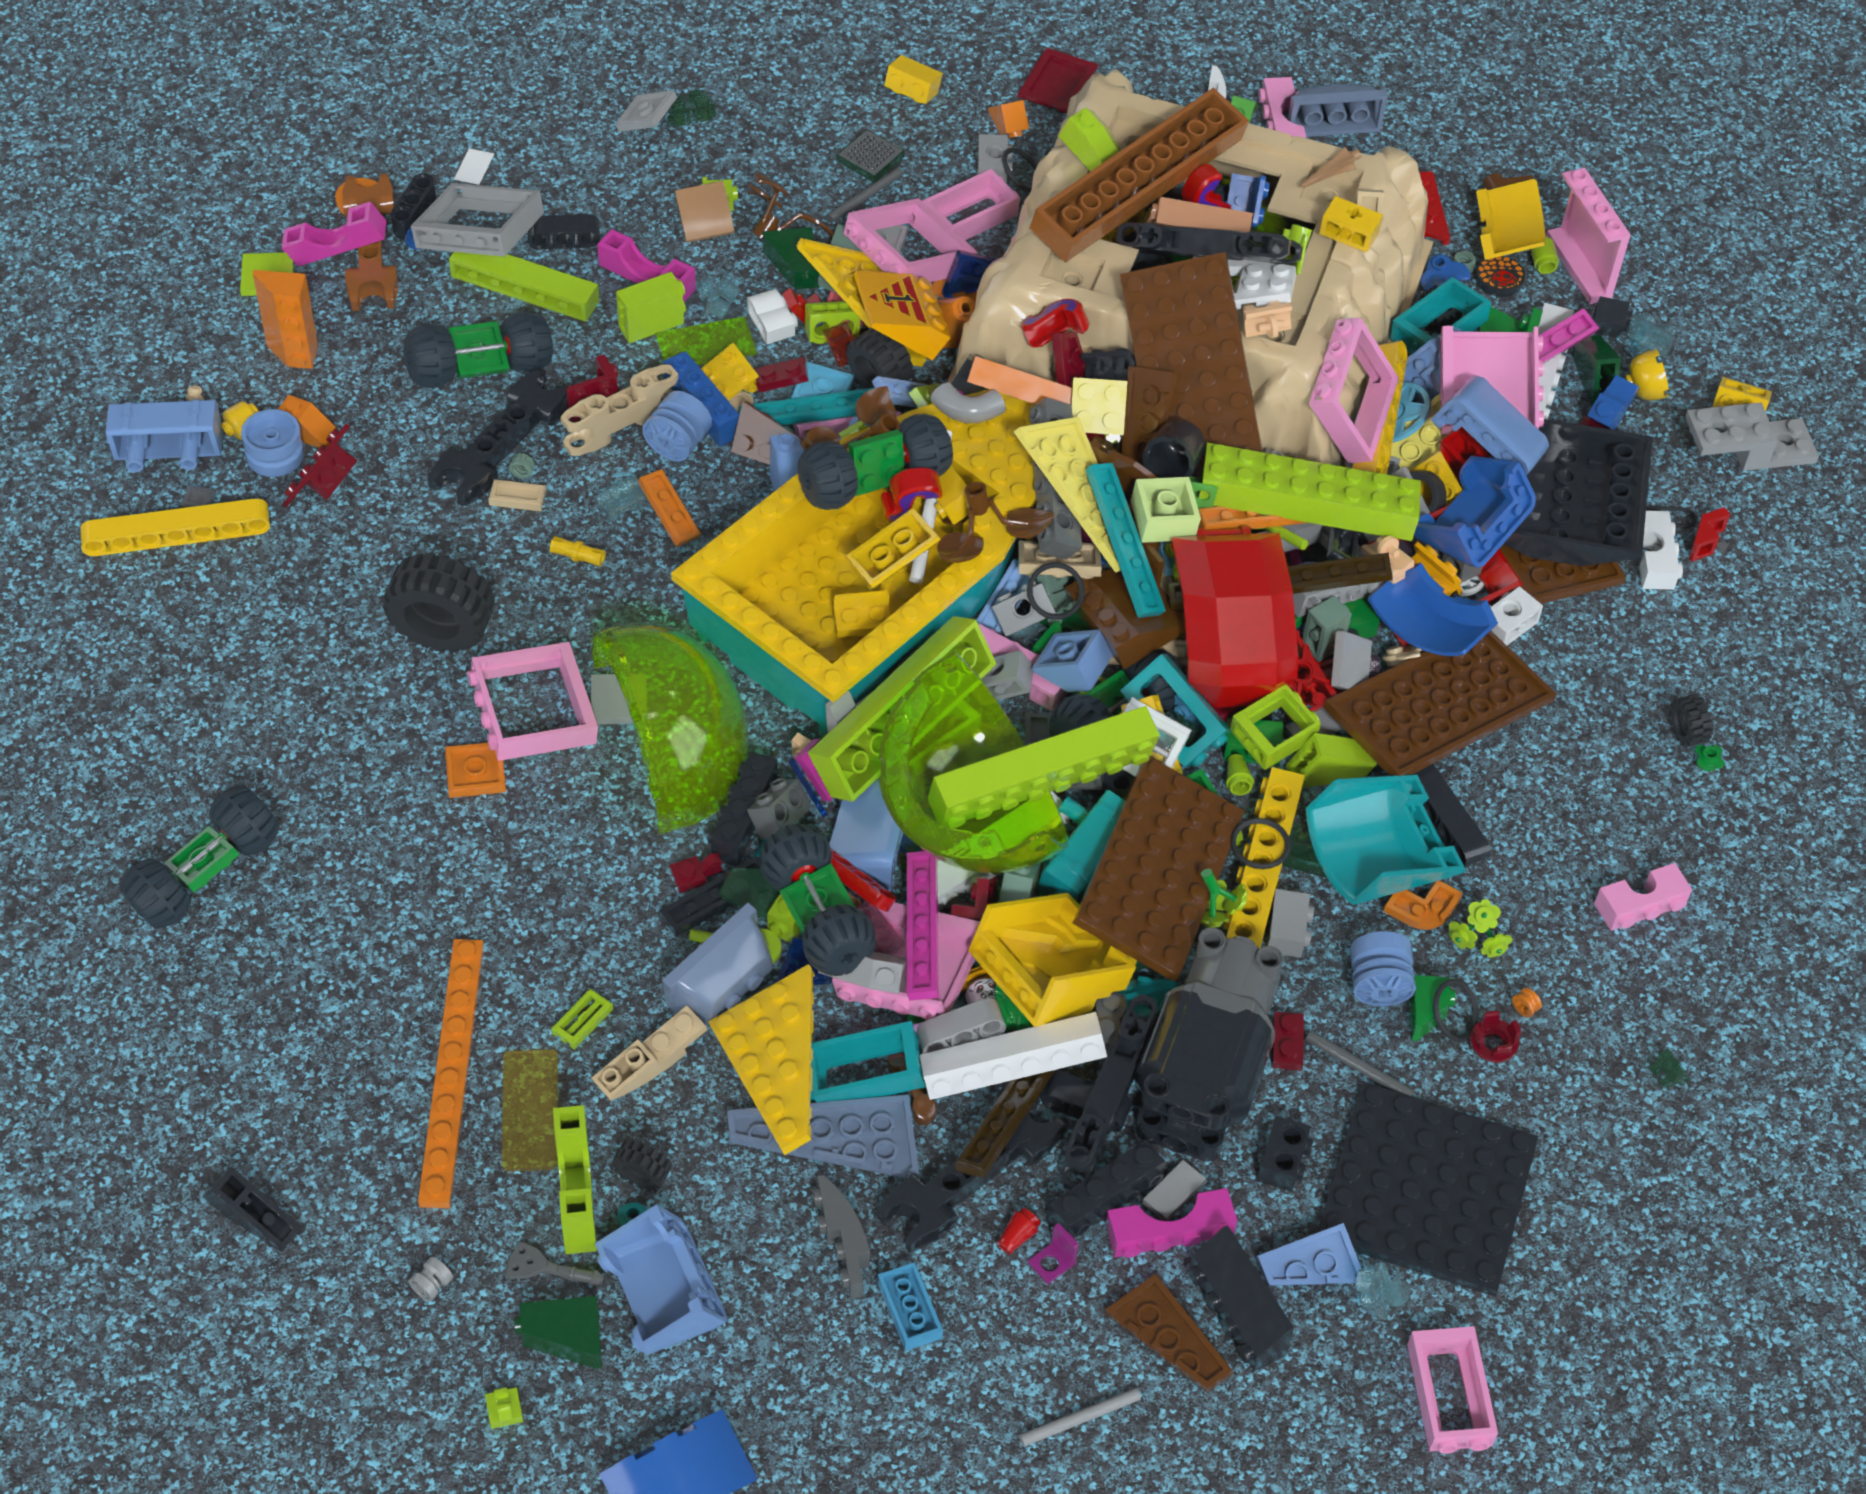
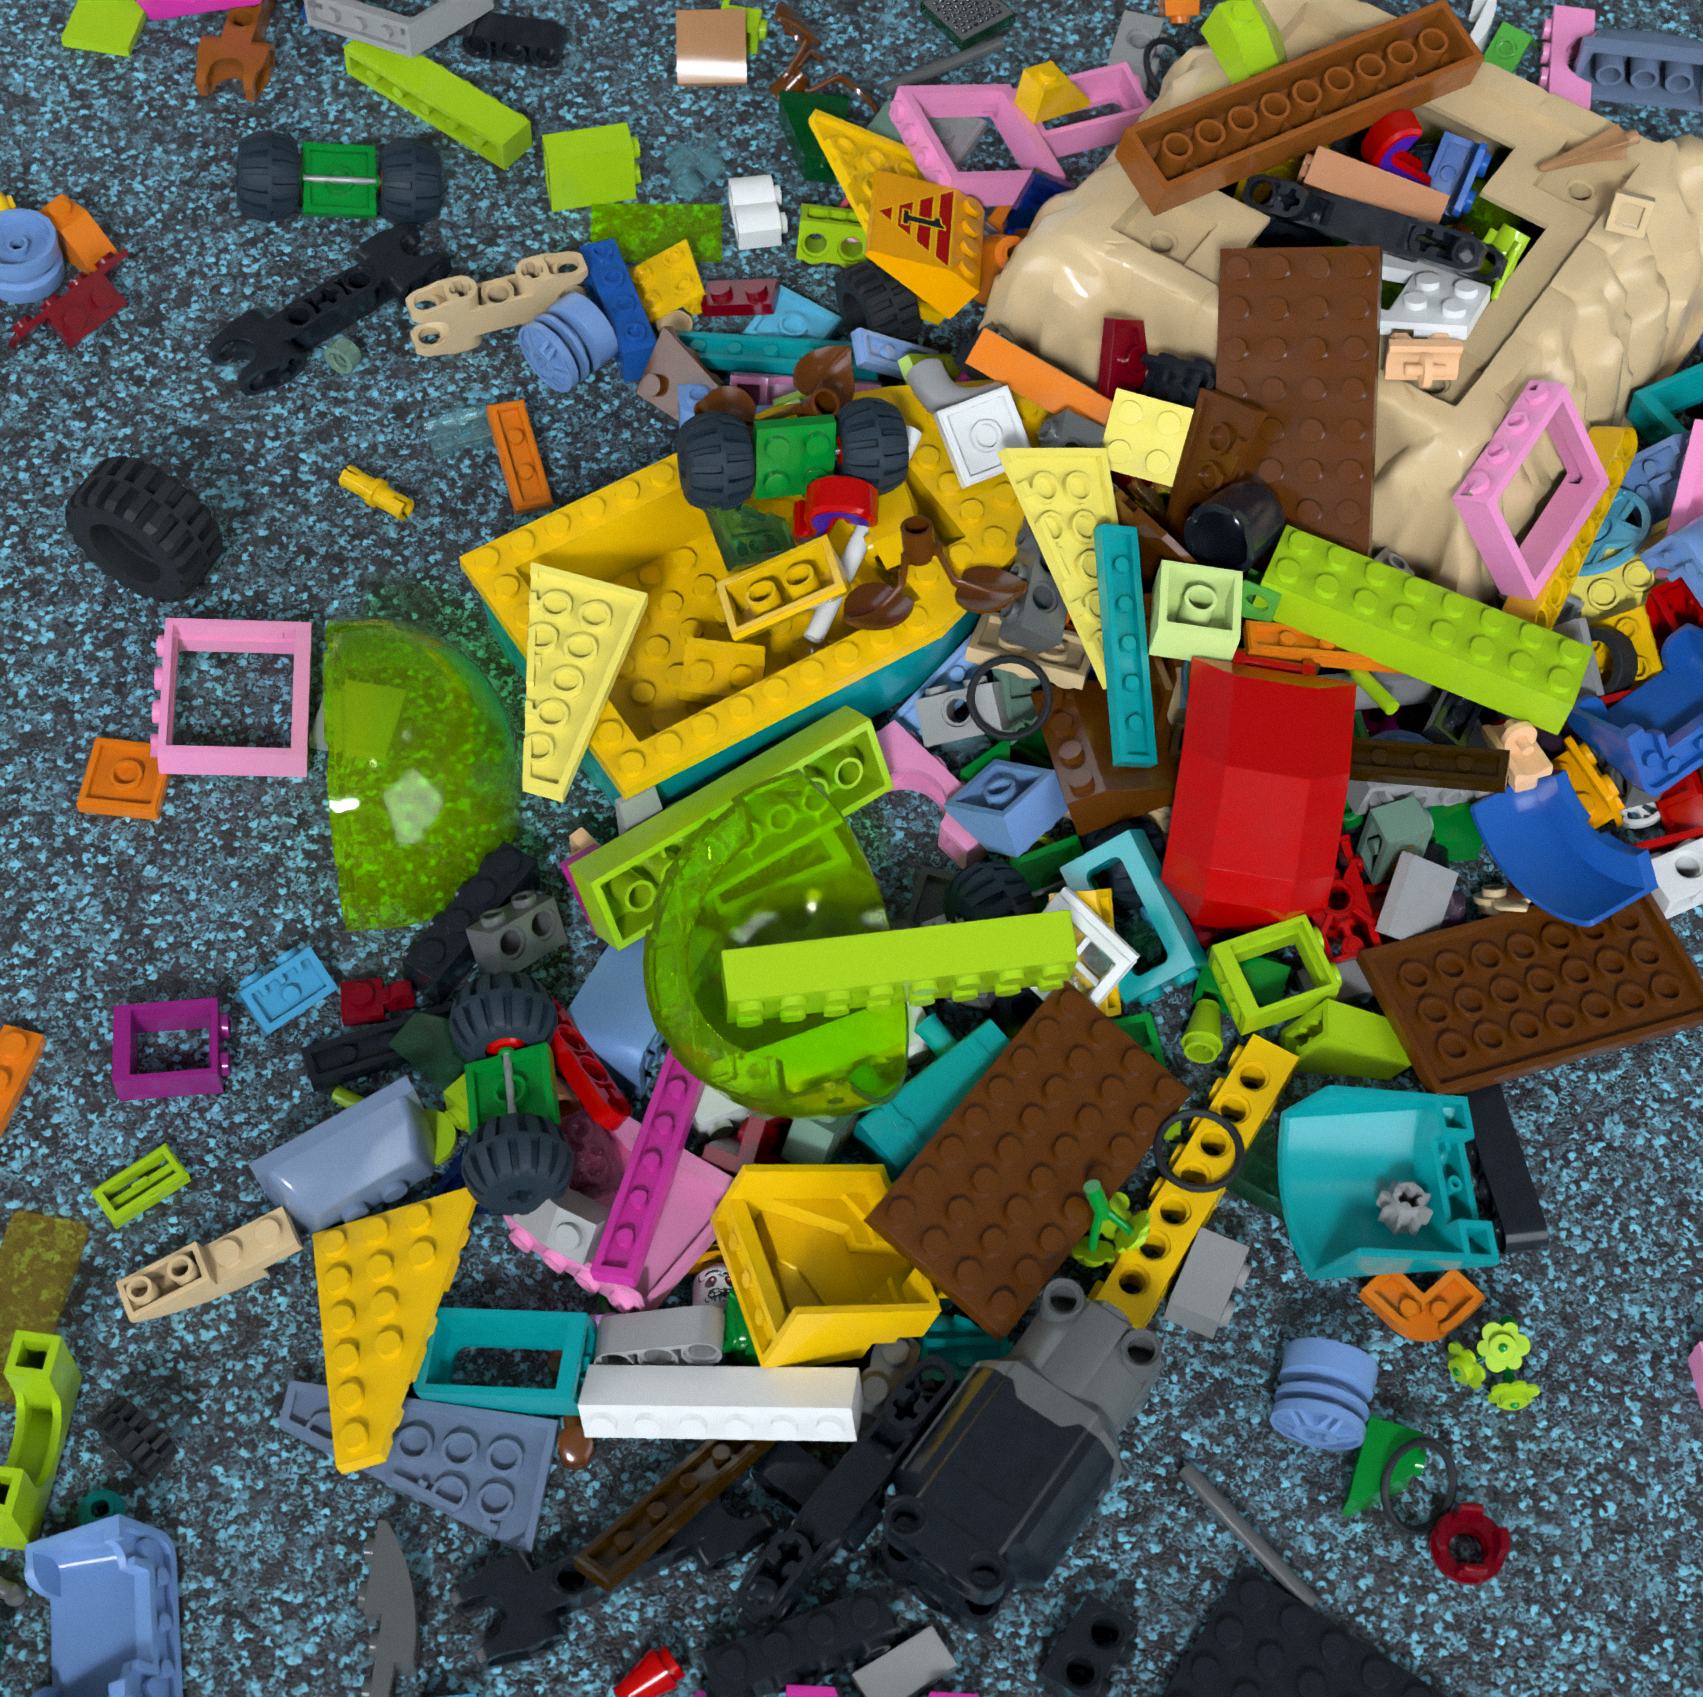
camera: 15 degrees right, 5 degrees up
(287, 317) = (93, 85): orange slope -> none
(517, 495) = (325, 395): tan tile -> none
(566, 909) = (169, 1016): none -> magenta window
(603, 384) = (477, 265): dark red bracket -> none
(622, 257) = (578, 89): dark pink arch -> none
(636, 877) = (287, 990): none -> dark azure bracket
(774, 619) = (573, 658): none -> light yellow wing
(797, 302) = (791, 197): red bracket -> none
(809, 790) = (569, 913): clear blue piece -> none
(838, 339) = (829, 261): clear red brick -> none
(860, 520) = (748, 536): none -> clear green wing
(948, 199) = (1048, 93): none -> yellow slope
(993, 425) = (977, 431): none -> white tile
(1009, 676) = (906, 811): light grey brick -> none
(1053, 320) = (1113, 297): red animal -> none
(1289, 1041) = (1150, 1470): dark red plate -> none
(1351, 224) = (1593, 239): yellow brick -> none
(1398, 849) = (1404, 1207): none -> light grey gear
(1526, 1002) = (1534, 1498): orange bush -> none

